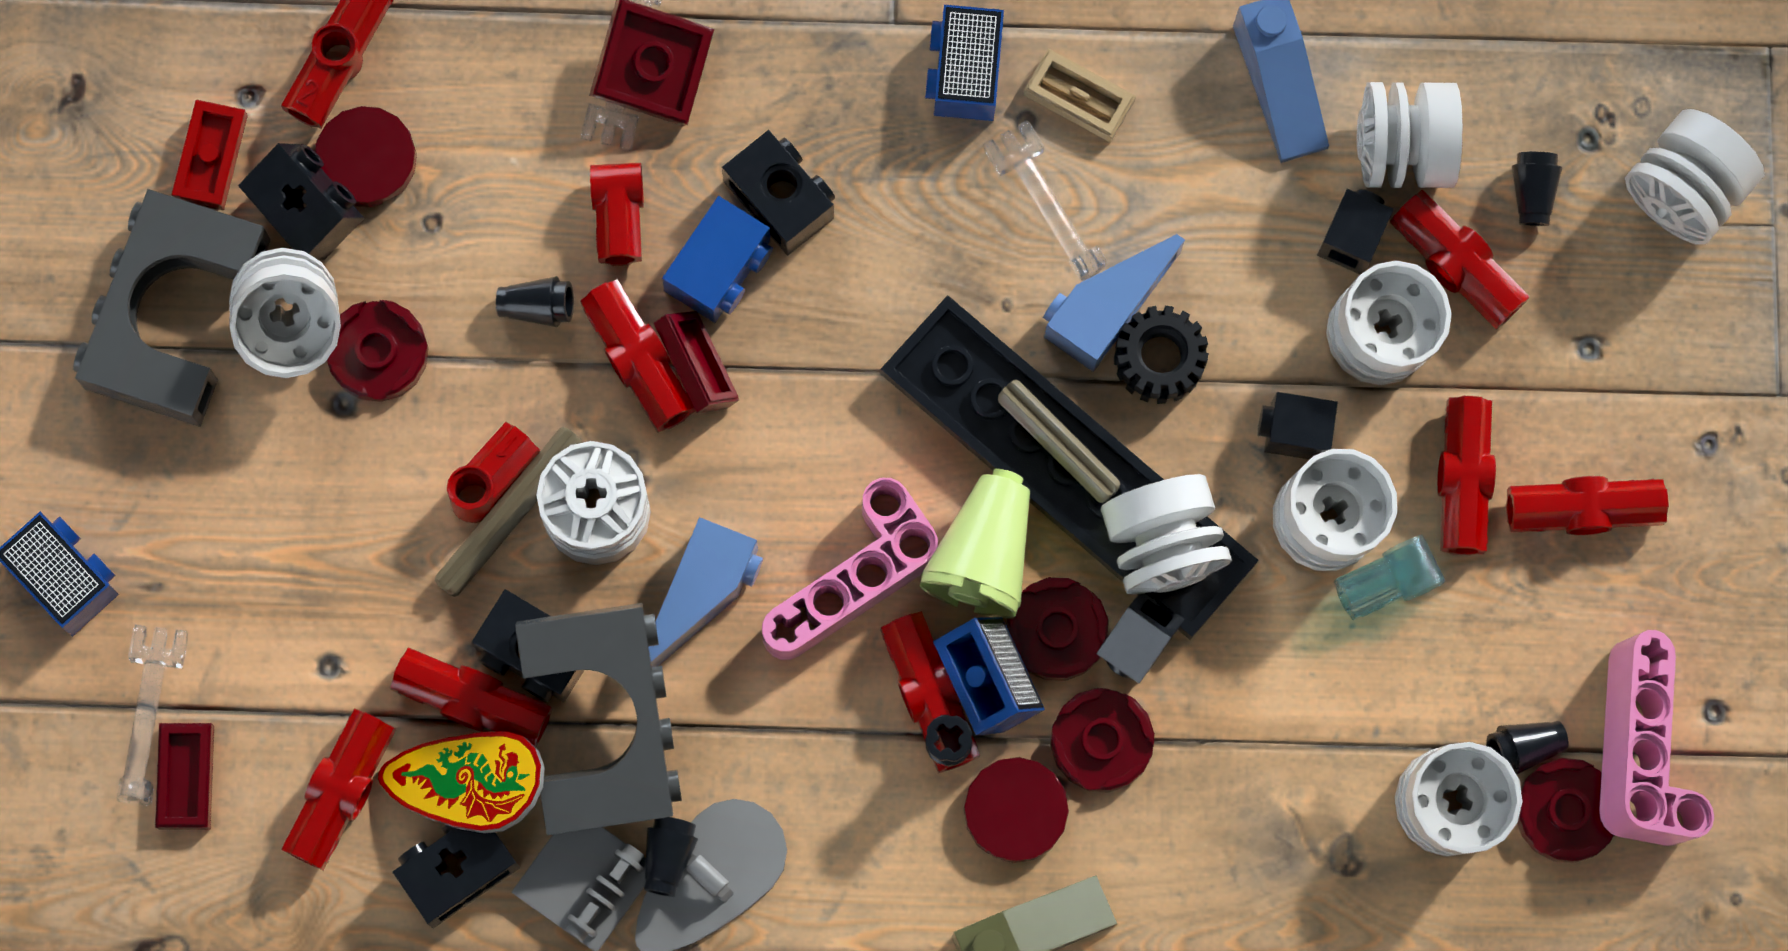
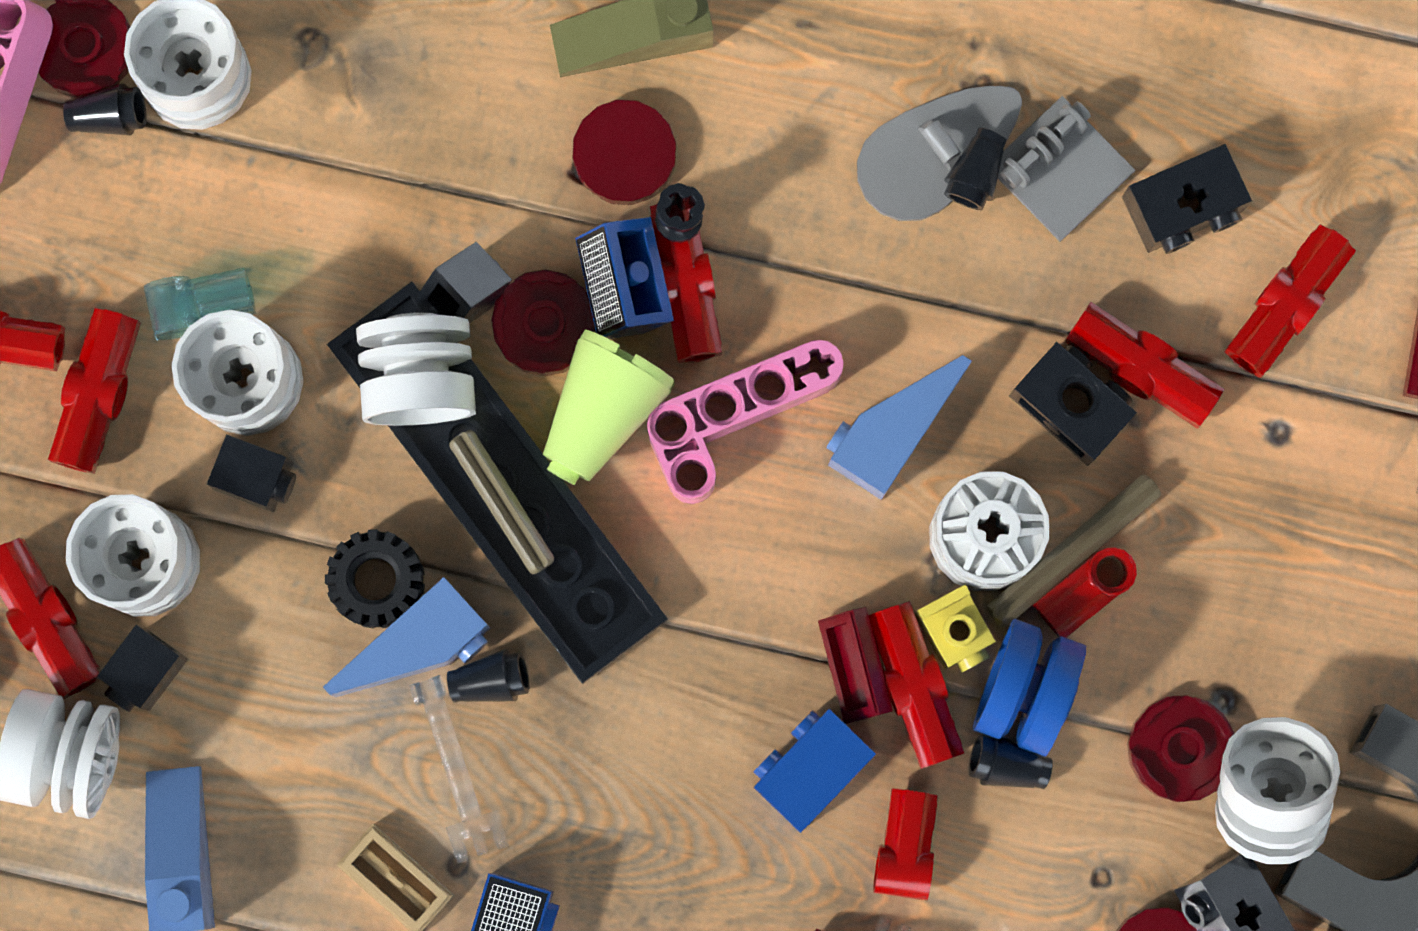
camera: 165 degrees left, 5 degrees up
(468, 780) = (1162, 276): shield -> none
(521, 362) = (1037, 690): none -> blue wheel
(617, 428) = (936, 621): none -> light yellow brick
(638, 781) = (994, 368): dark grey arch -> none
(789, 219) = (761, 851): black brick -> none
(1032, 285) = (490, 679): none -> black cone
(1102, 740) = (524, 204): dark red tile -> none

